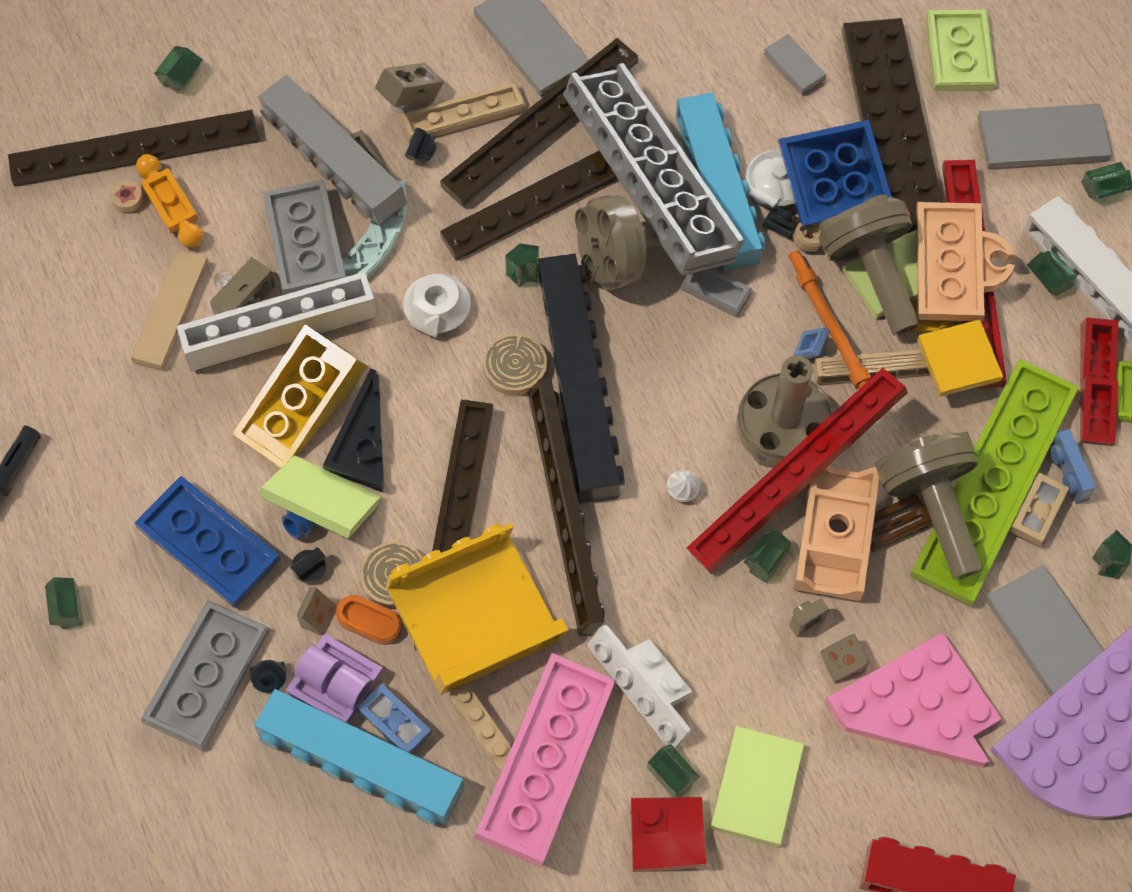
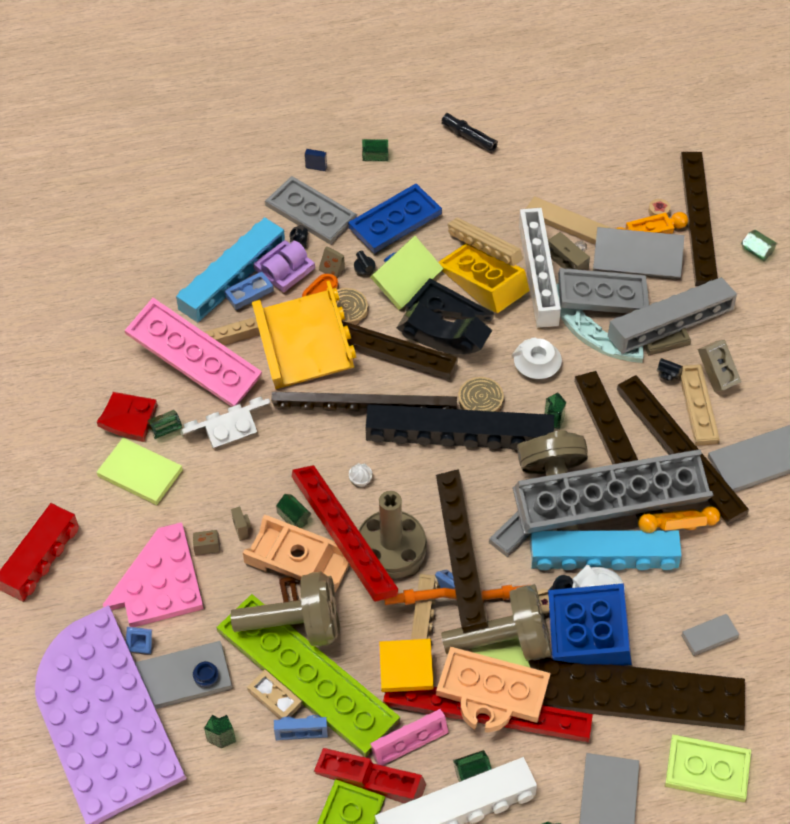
camera: 105 degrees right, 10 degrees down
(102, 687) = (316, 160): none -> dark blue tile
(223, 205) = (638, 253): none -> light grey tile
(246, 398) = (485, 241): none -> tan piece
(417, 441) = (431, 330): none -> black brick
(665, 106) = (675, 520): none -> light orange plate
(774, 330) = (461, 552): none -> dark brown plate
(1018, 697) = (139, 640): none -> medium blue slope
(1039, 344) = (409, 737): none -> bright pink plate
(1045, 594) = (205, 674): none -> dark blue plate

